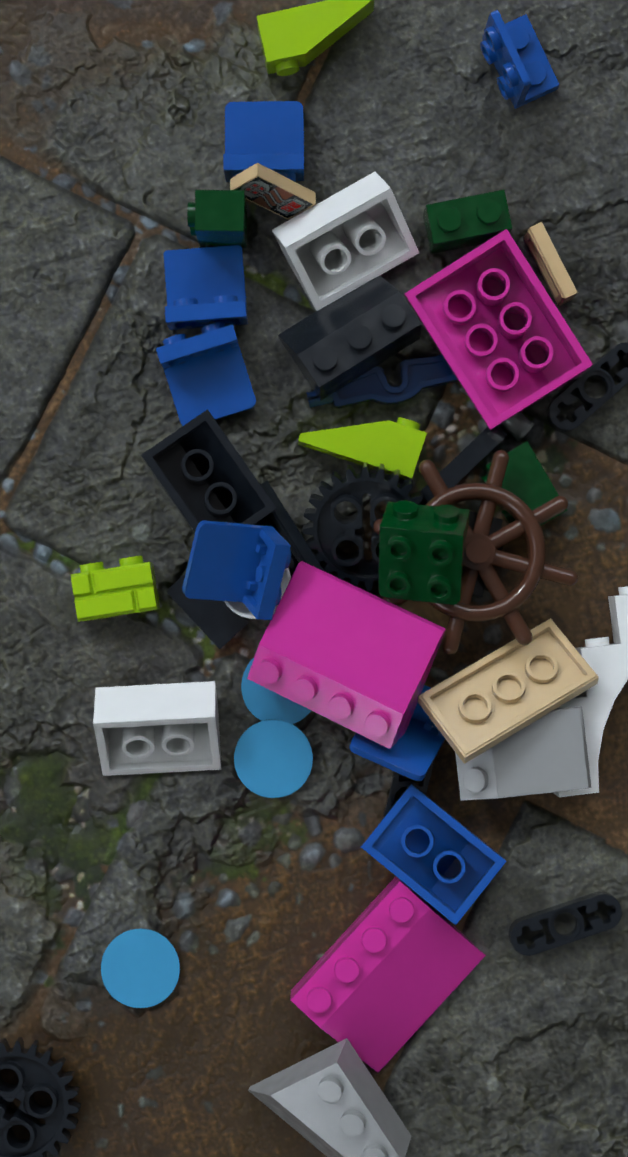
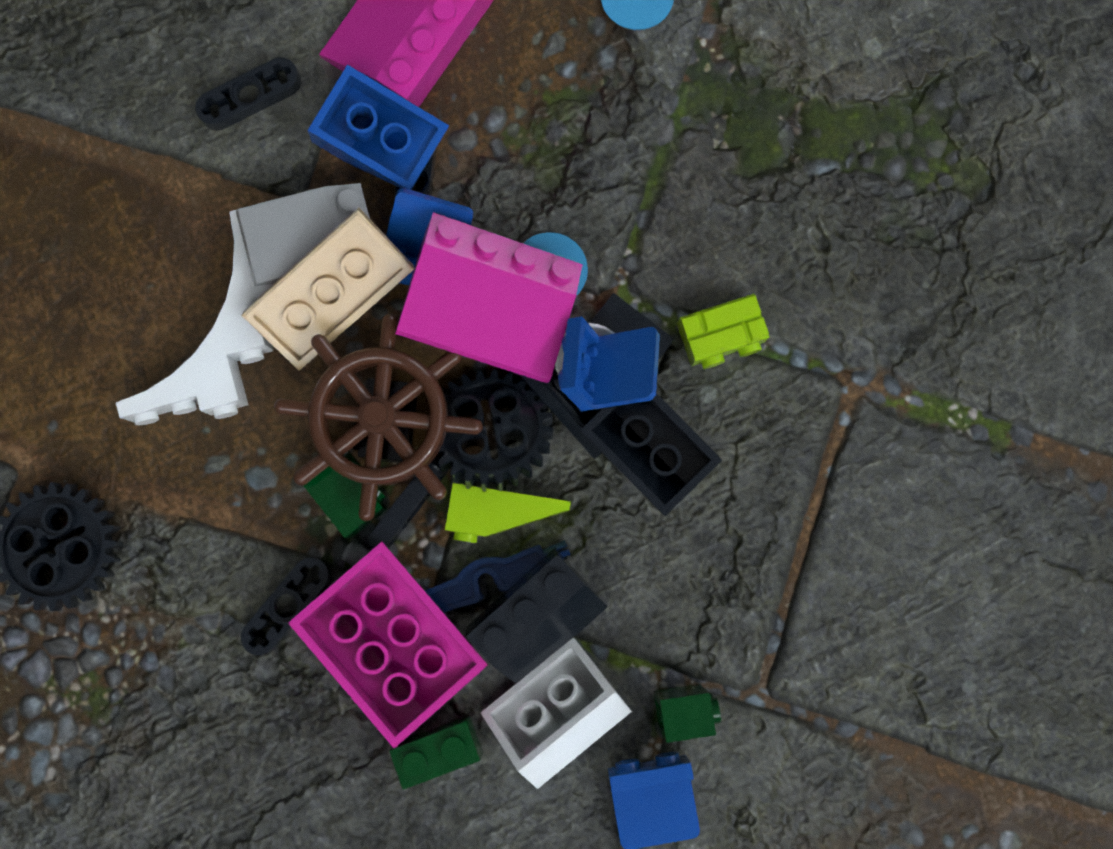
camera: 175 degrees right, 5 degrees down
(157, 728) = (660, 210): white slope -> none
(205, 287) = (688, 642): blue bracket -> none
(207, 373) = (671, 555): blue bracket -> none
(273, 191) = (637, 750): tile -> none
(273, 758) = (545, 201): dark azure piece -> none
(422, 552) = (428, 404): dark green bracket -> none
(550, 264) = (347, 722): tan tile -> none

